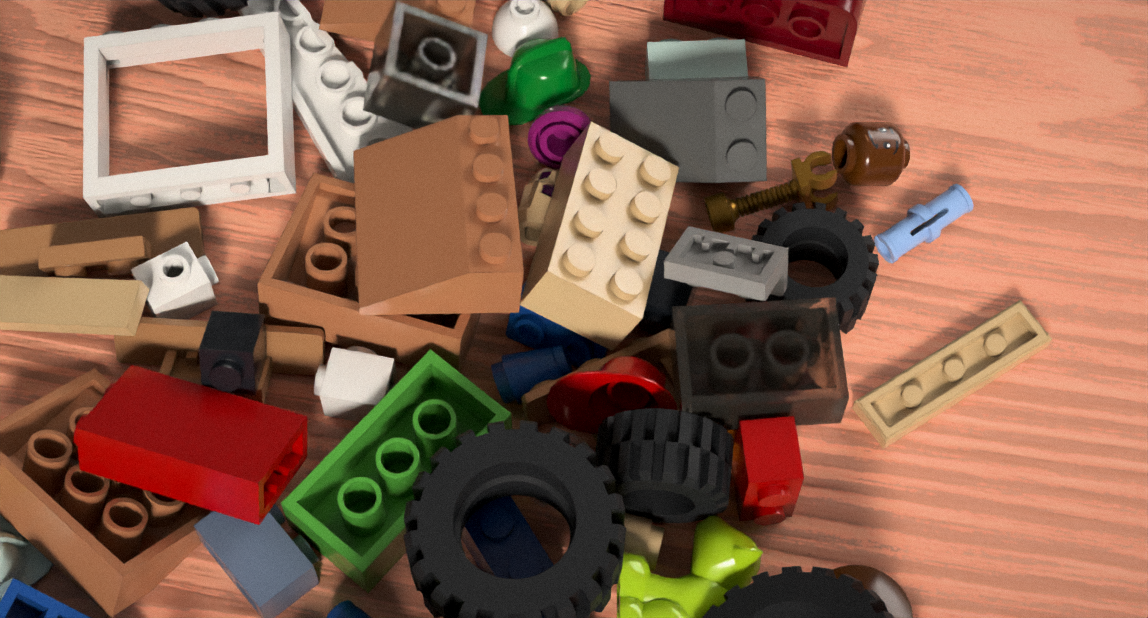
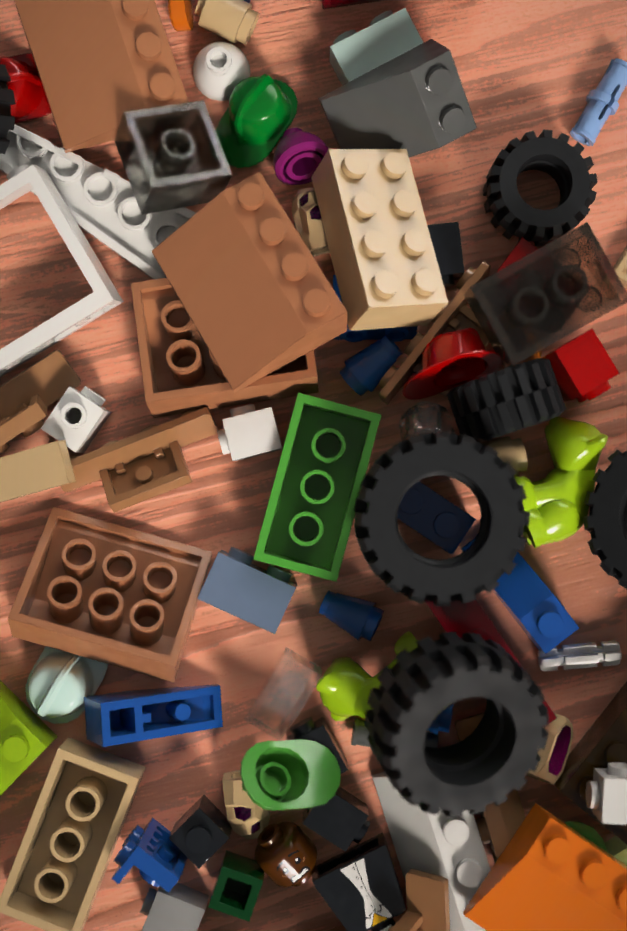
camera: 20 degrees left, 25 degrees up
(192, 443) = (164, 543): red brick -> none
(233, 352) = (154, 460): black brick -> none
(725, 211) = (502, 118): pearl gold bar -> none
(728, 264) = (491, 228): light grey bracket -> none
(870, 153) = (540, 61): reddish brown head -> none

